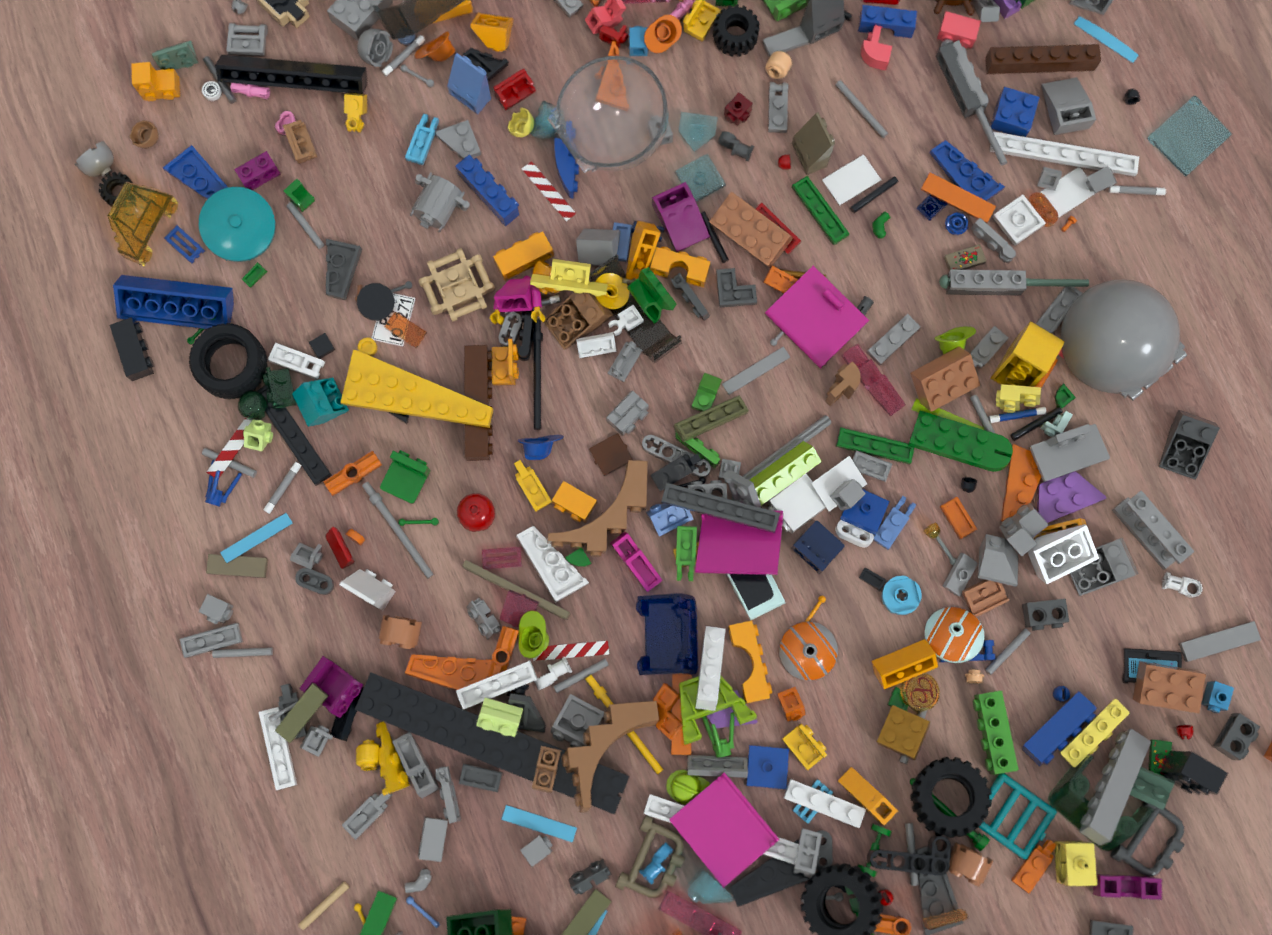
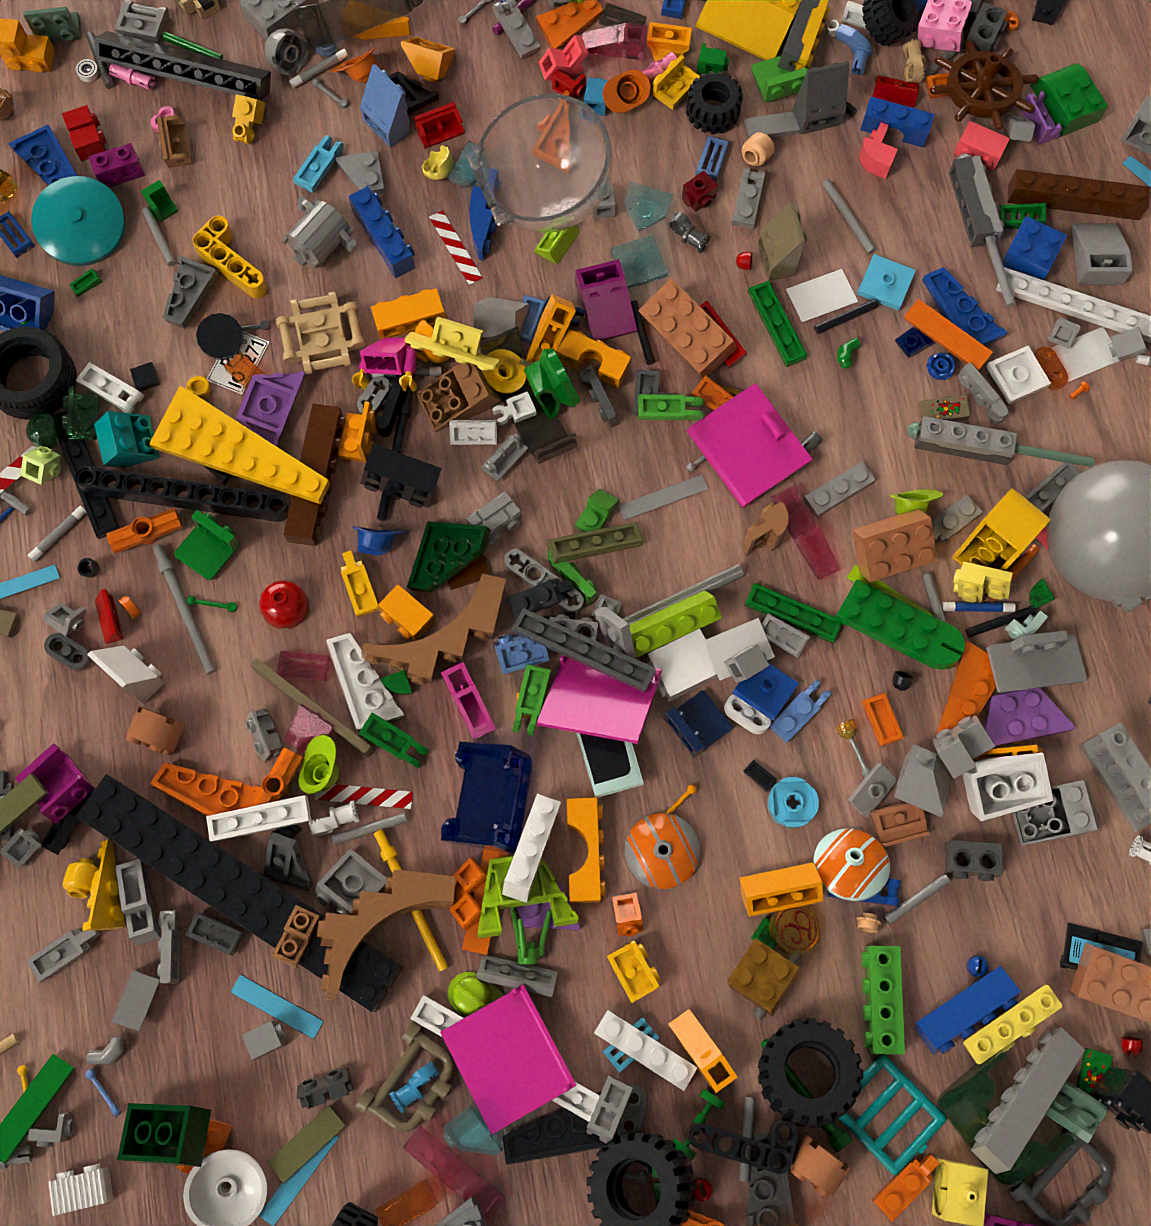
camera: 10 degrees right, 5 degrees down
(223, 147) = (84, 132): none -> red piece
(293, 54) = (190, 45): none -> green bar
(311, 512) = (85, 570): none -> black hinge
(367, 435) = (174, 487): none -> black beam
(371, 237) = (217, 248): none -> yellow beam
(428, 351) = (269, 404): none -> medium lavender wing
(499, 717) = (251, 859): yellowish green brick -> none
(548, 394) = (400, 476): none -> black brick
(583, 603) = (391, 739): none -> green hinge
(595, 447) = (444, 552): none -> dark green plate
(629, 178) = (556, 244): none -> lime slope
(744, 63) = (714, 175): none -> medium blue tile
(747, 298) = (668, 407): none -> bright green hinge
(767, 767) = (581, 989): blue plate -> none
(901, 160) = (886, 282): none -> medium azure plate
(1014, 76) = (1031, 209): none -> green slope

